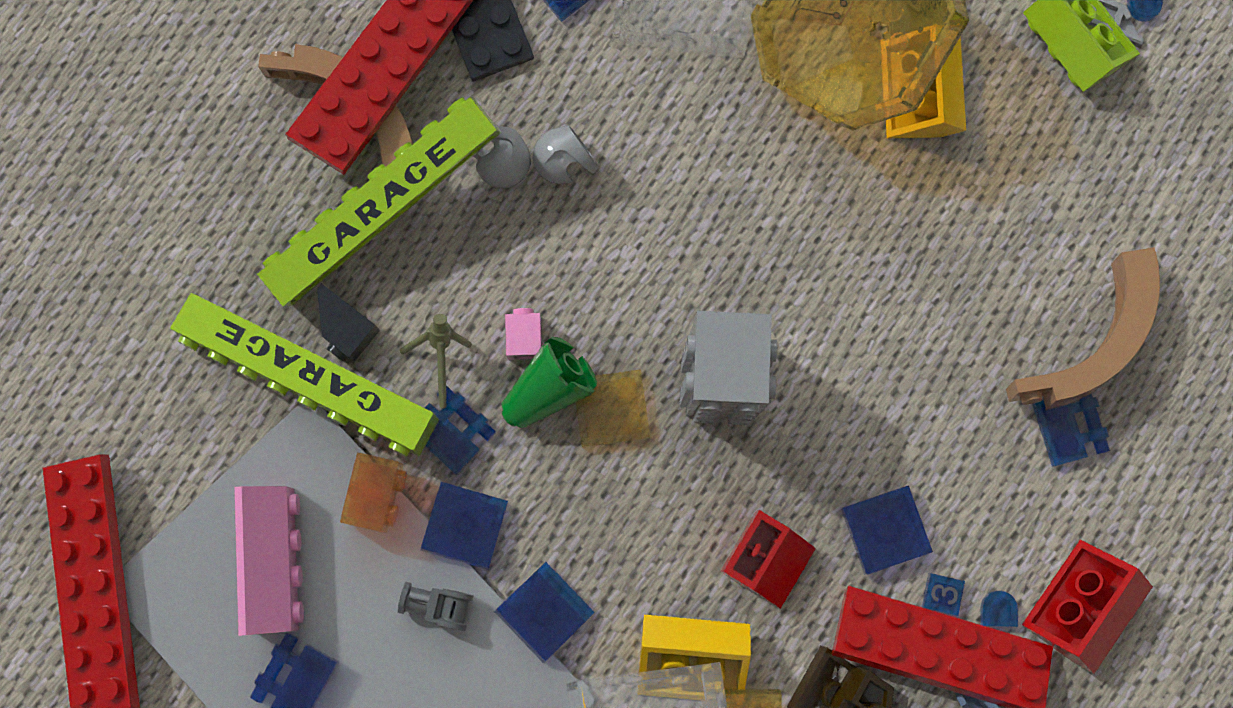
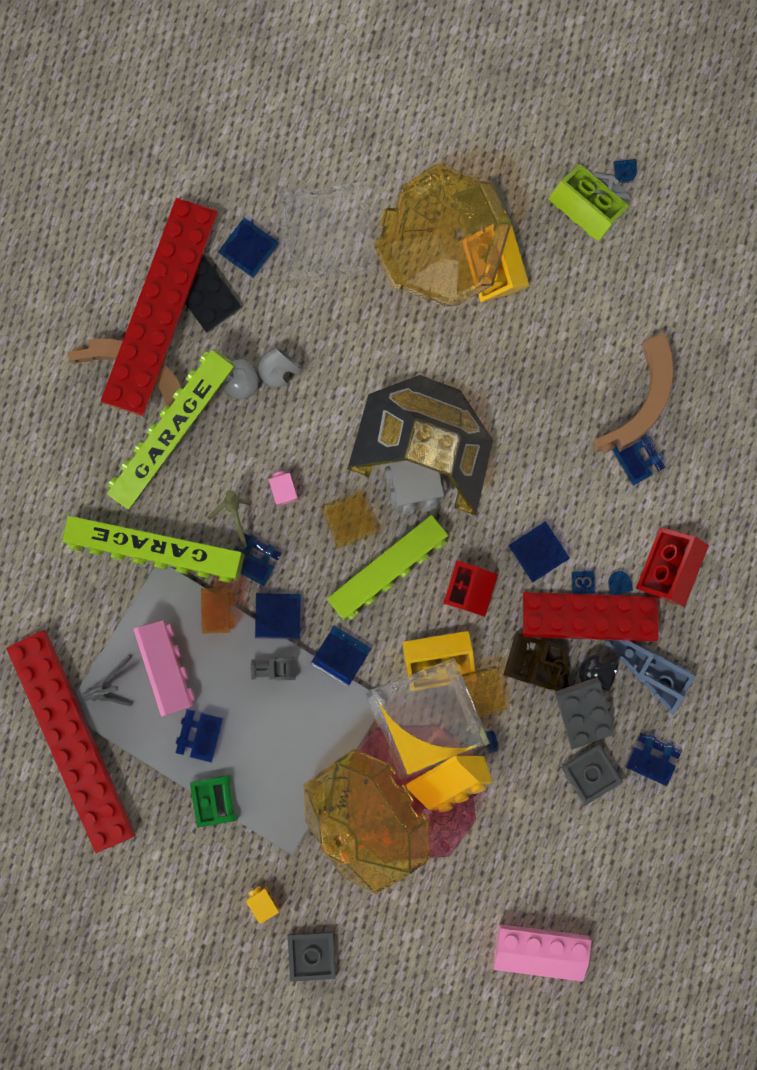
camera: 10 degrees left, 5 degrees up
(164, 572) = (100, 692): none -> dark grey plant
(343, 326) = (168, 511): black slope -> none
(548, 384) = (307, 516): green cone -> none
(650, 494) = (387, 567): none -> lime brick
(767, 295) = (429, 427): none -> windscreen

